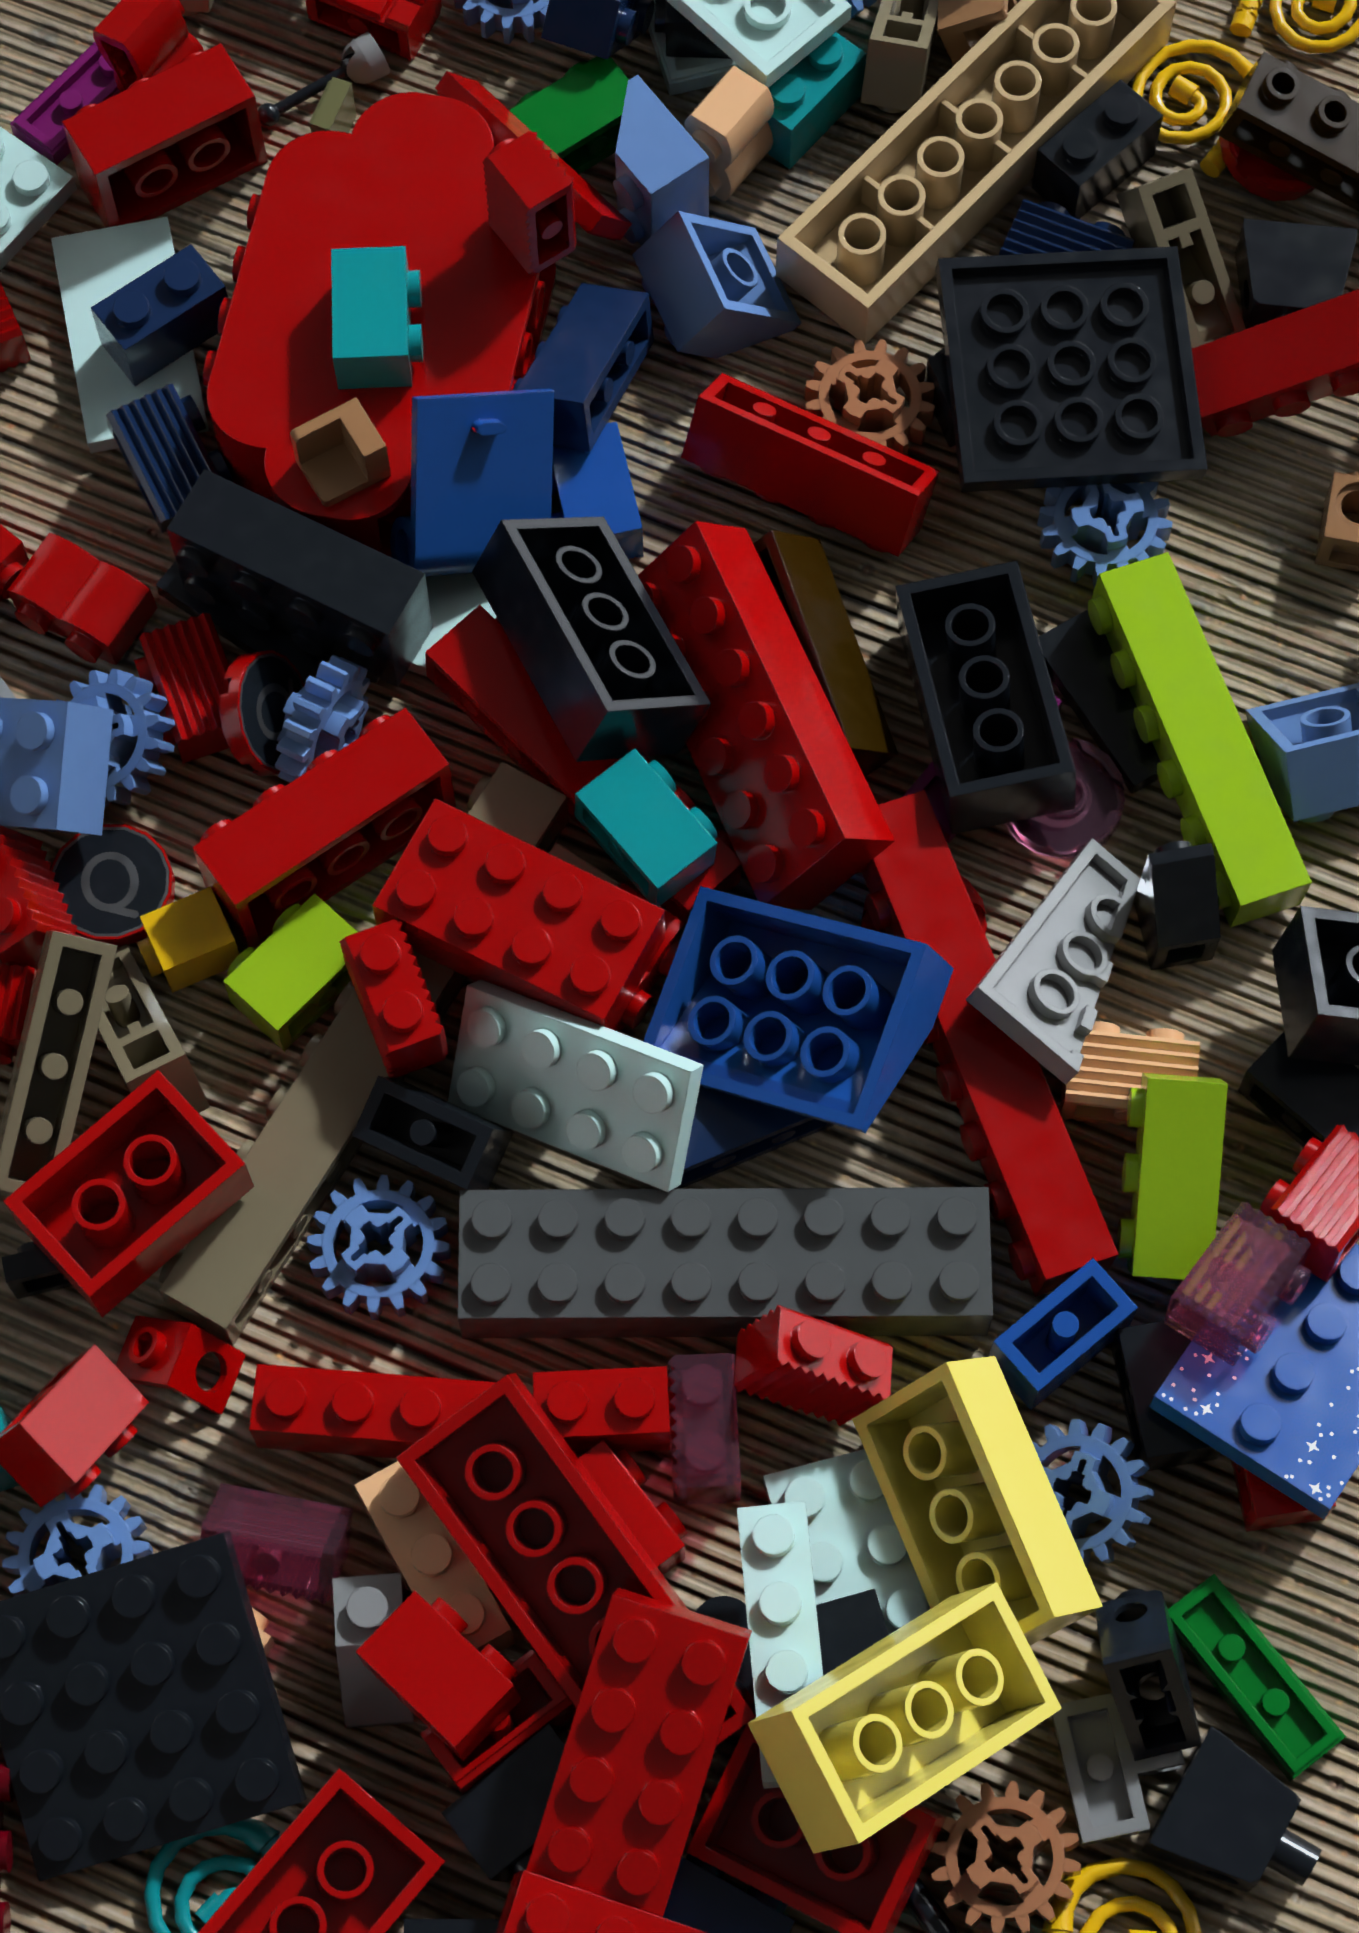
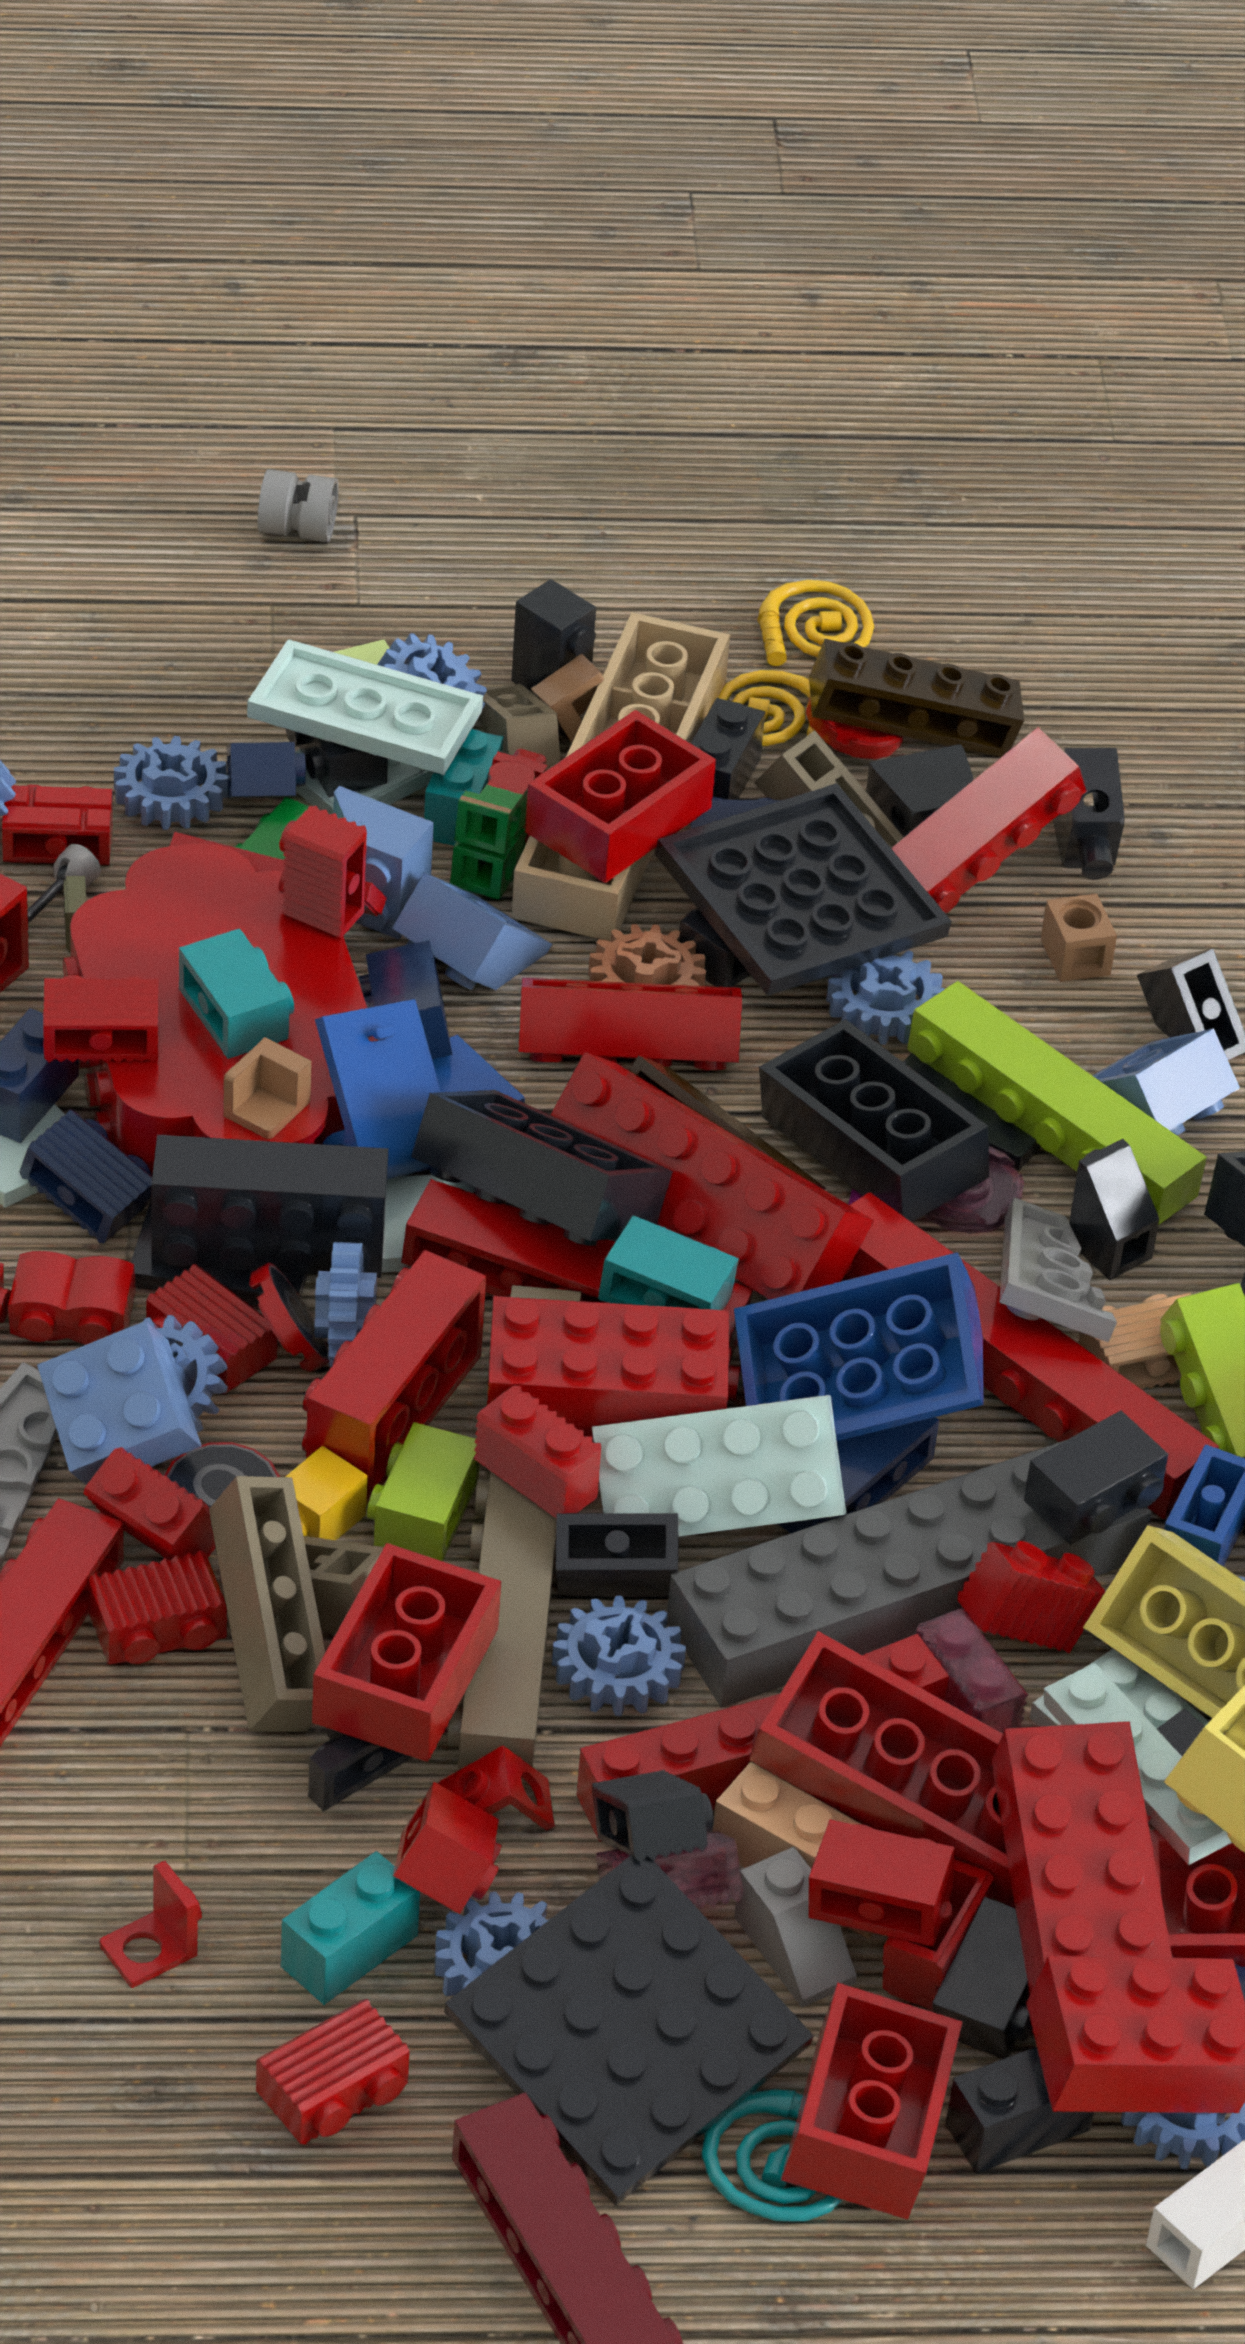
camera: 30 degrees left, 25 degrees down
(223, 300) = (100, 1019): none -> red brick
(265, 1490) = (652, 1815): none -> black brick
(733, 129) = (429, 794): light nougat brick -> none
(802, 162) = (493, 825): none -> green hips
(918, 194) = (620, 795): none -> red brick
(938, 1270) = (1096, 1477): none -> black brick

